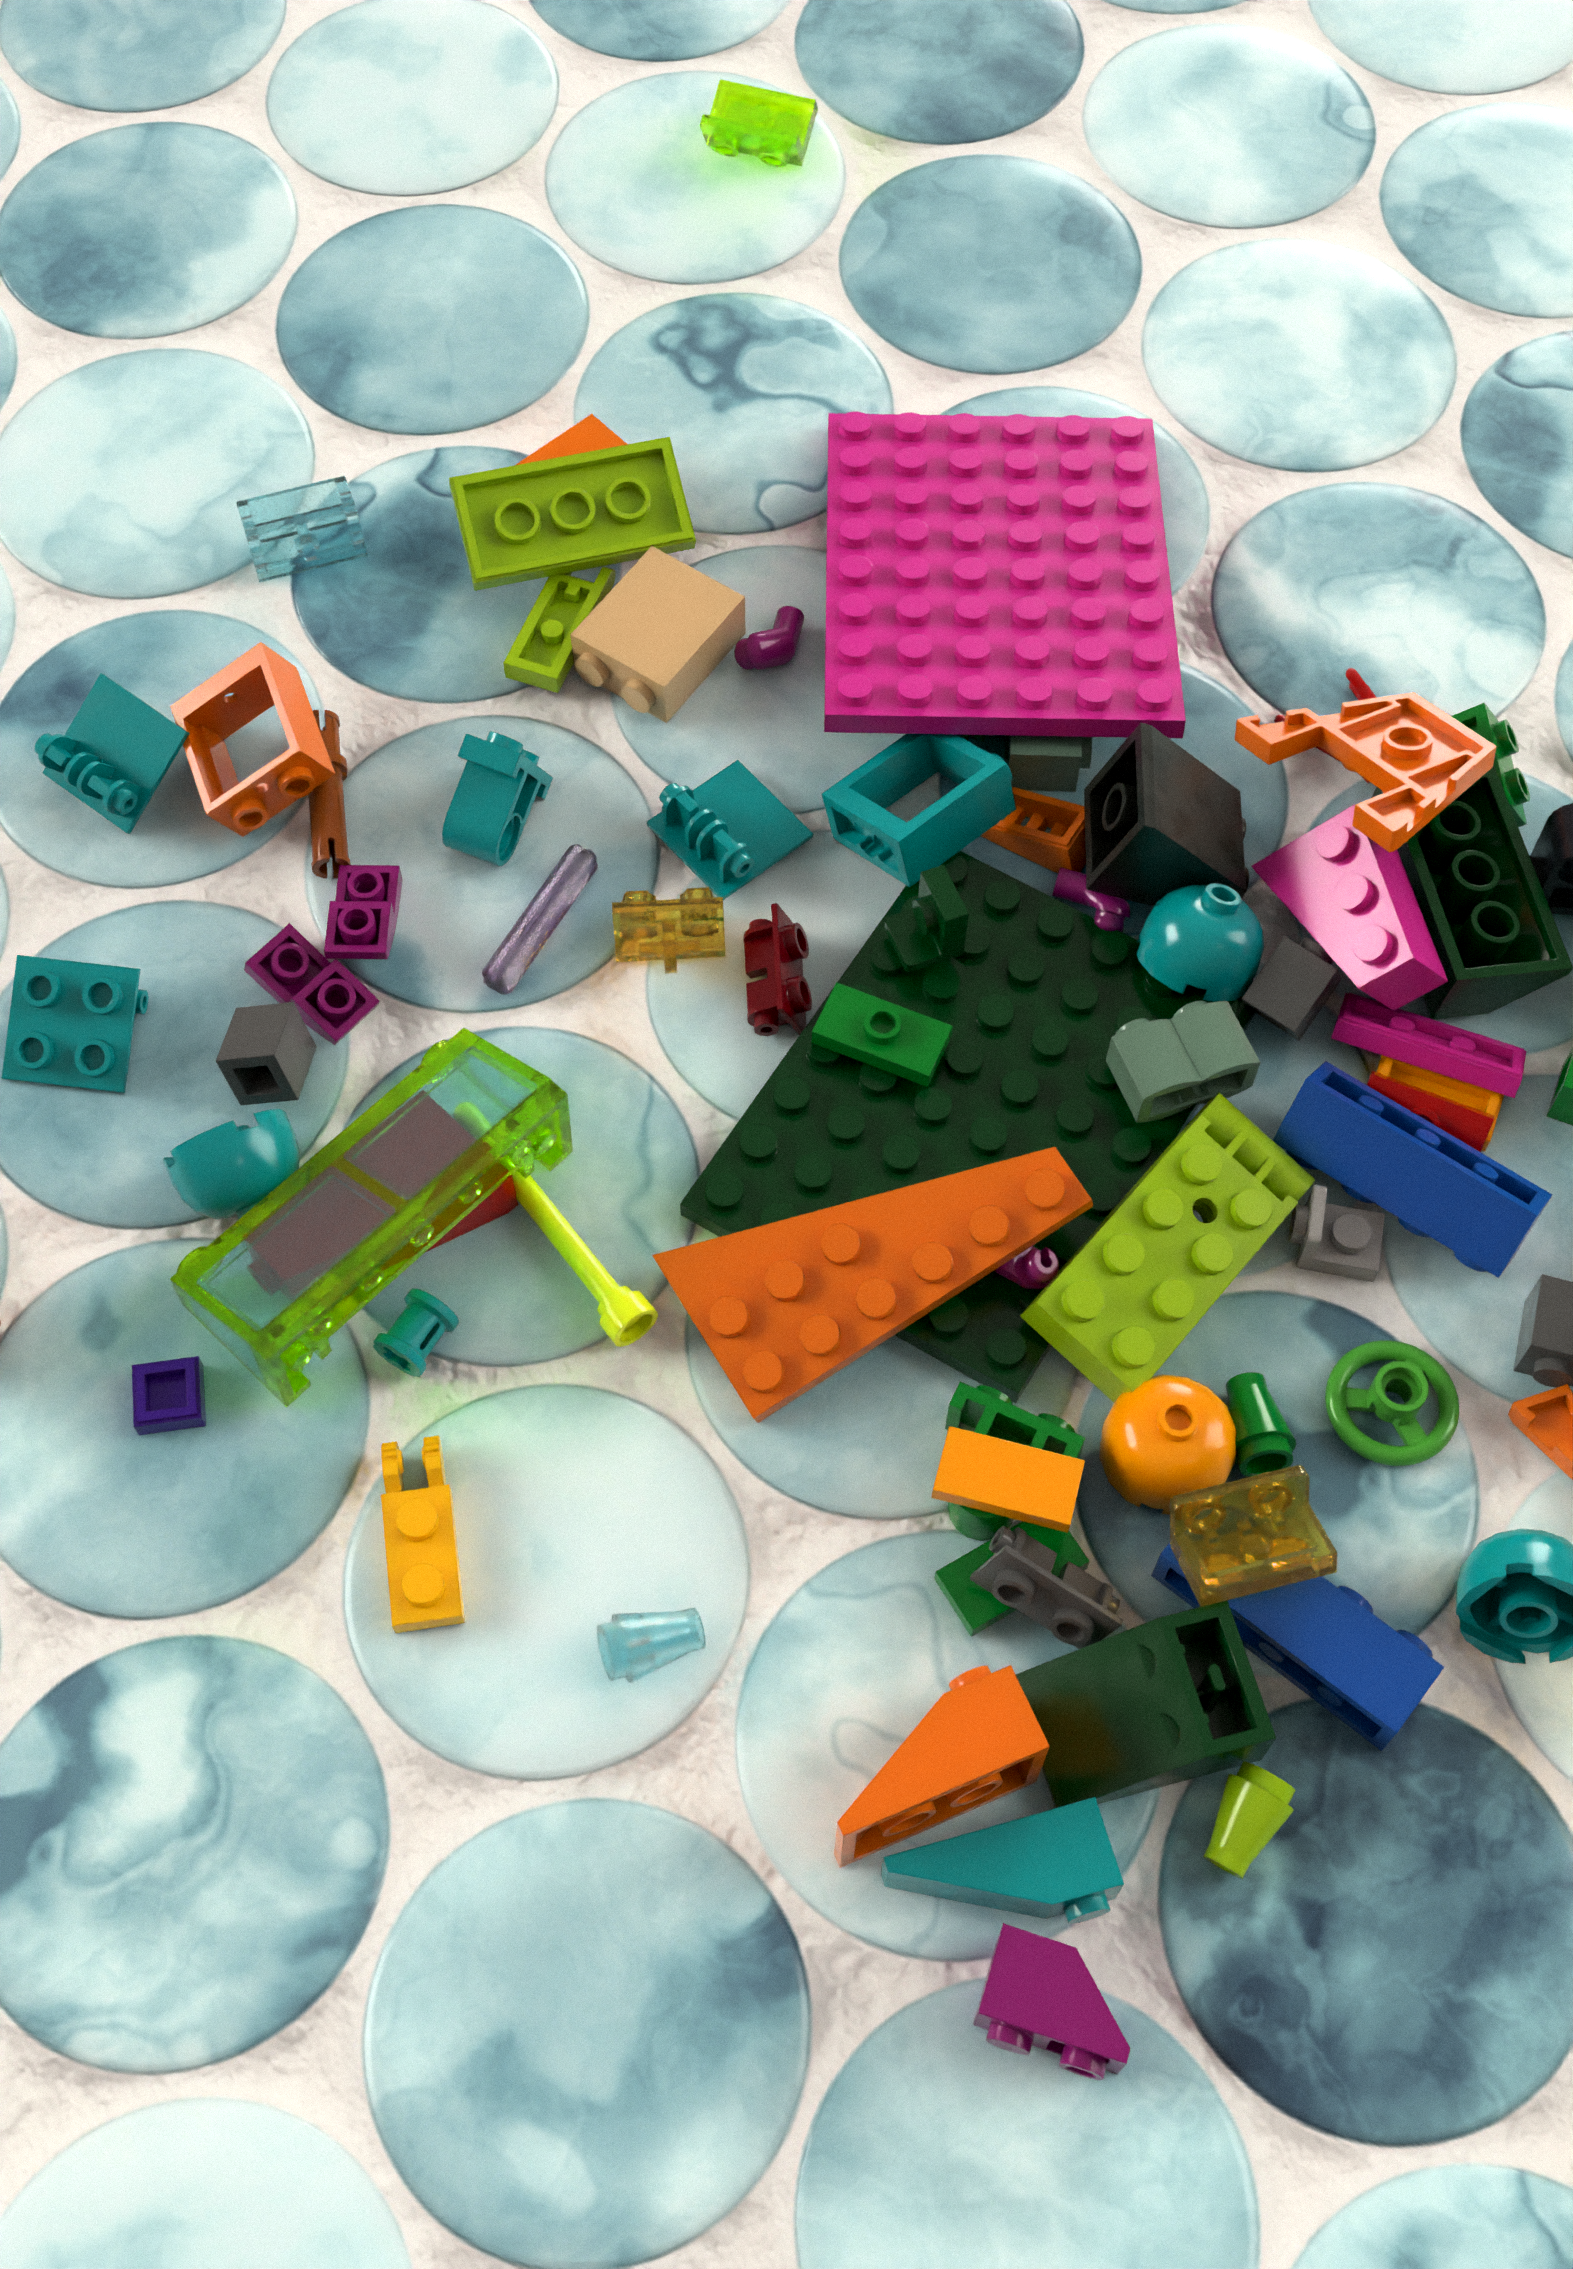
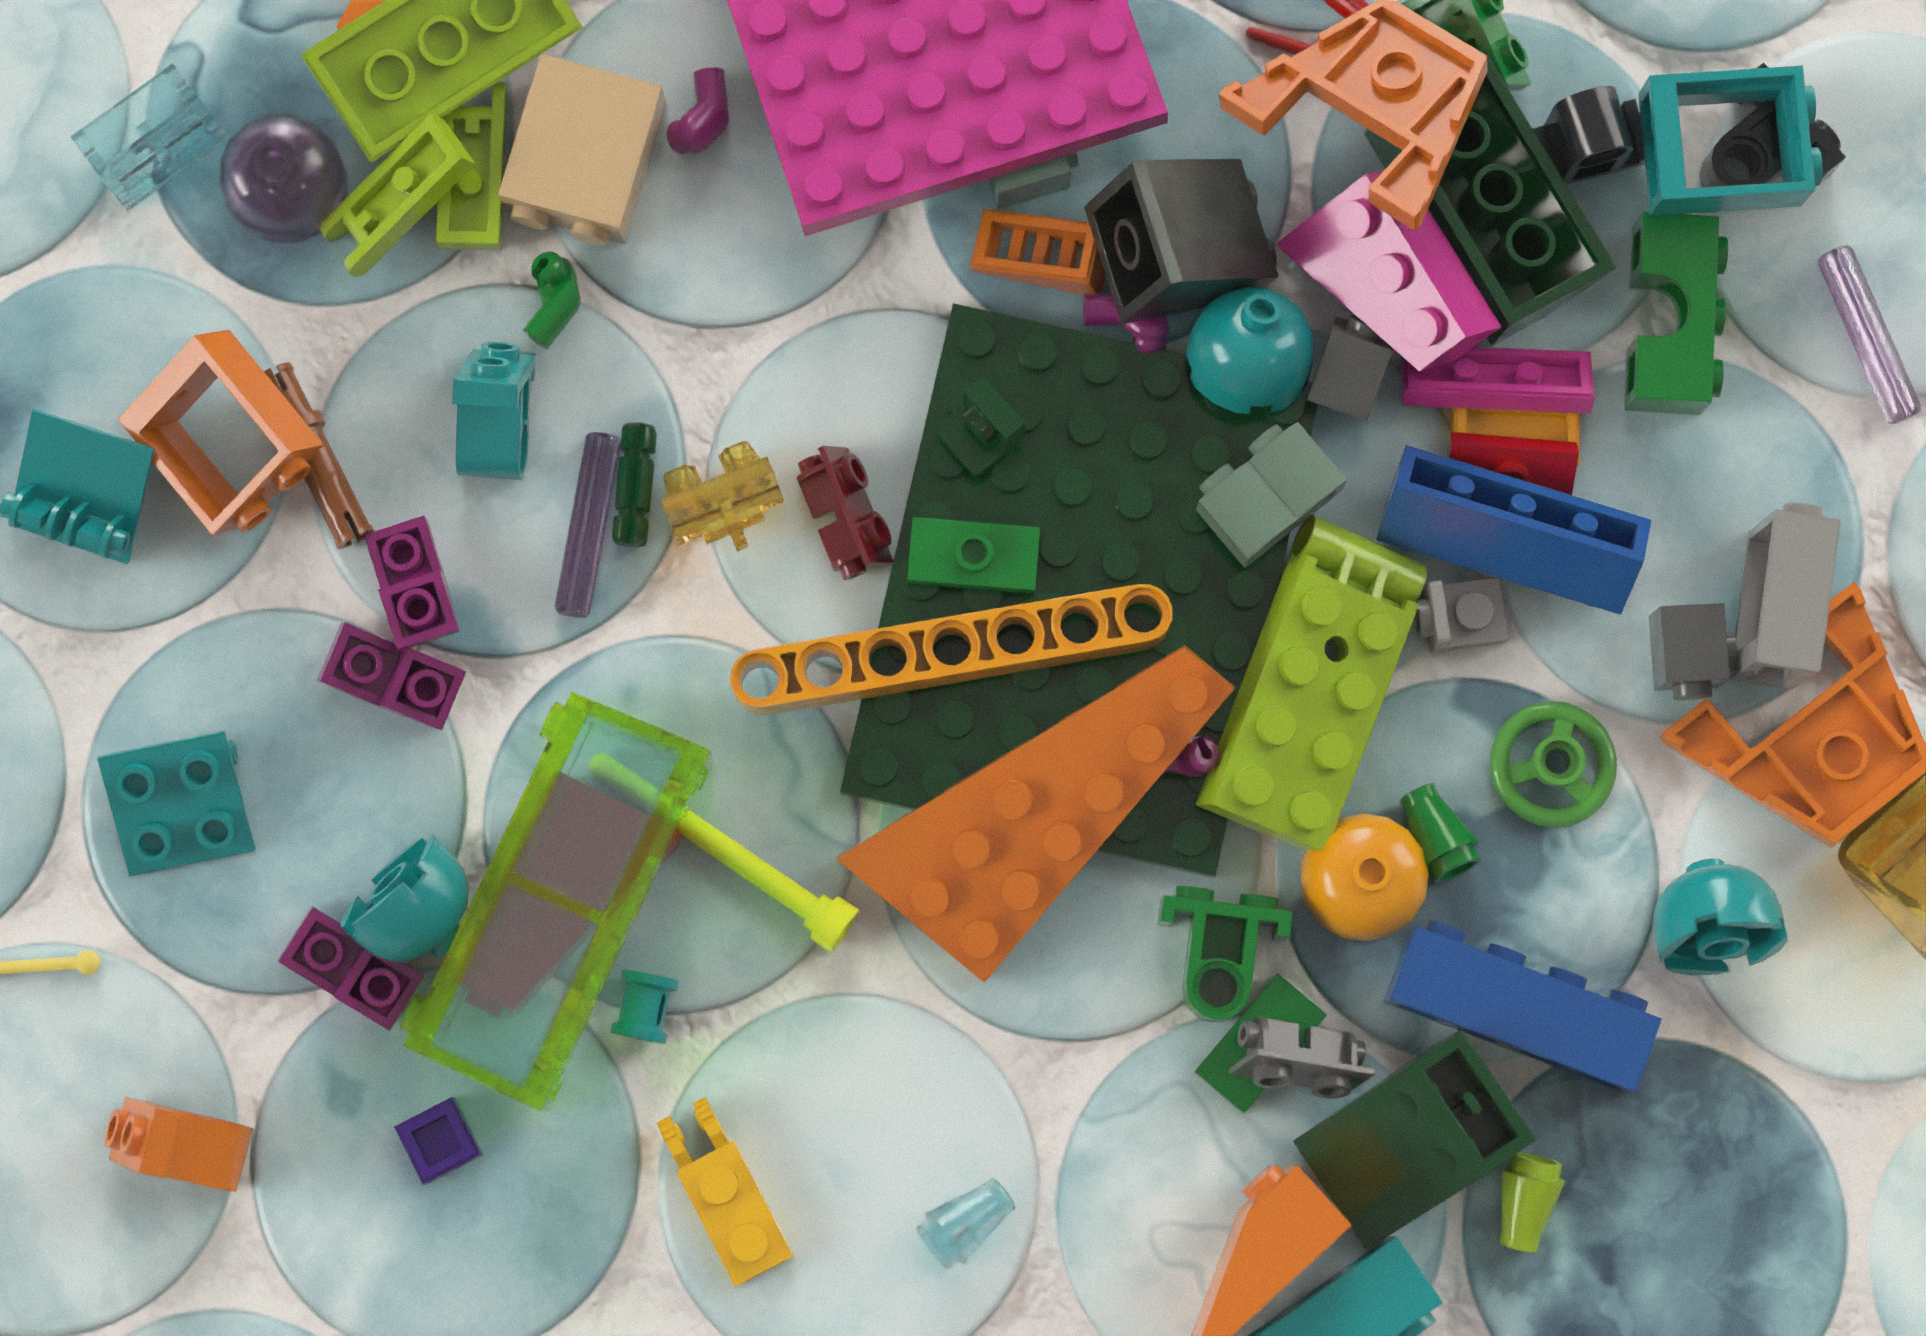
camera: 20 degrees left, 20 degrees up
(154, 1211) = (348, 971): none -> magenta slope
(266, 1053) = (387, 775): dark grey brick -> none
(397, 586) = (282, 177): none -> clear purple cylinder
(485, 617) = (398, 193): none -> lime hinge
(591, 740) = (558, 295): none -> green arm
(595, 900) = (634, 484): none -> dark green axle
(727, 828) = (737, 357): teal hinge -> none
(807, 1078) = (977, 628): none -> light orange beam
(903, 848) = (963, 303): teal window -> none
(1008, 1479) = (1237, 979): light orange tile -> none
(1249, 1536) = (1466, 968): clear yellow bracket -> none

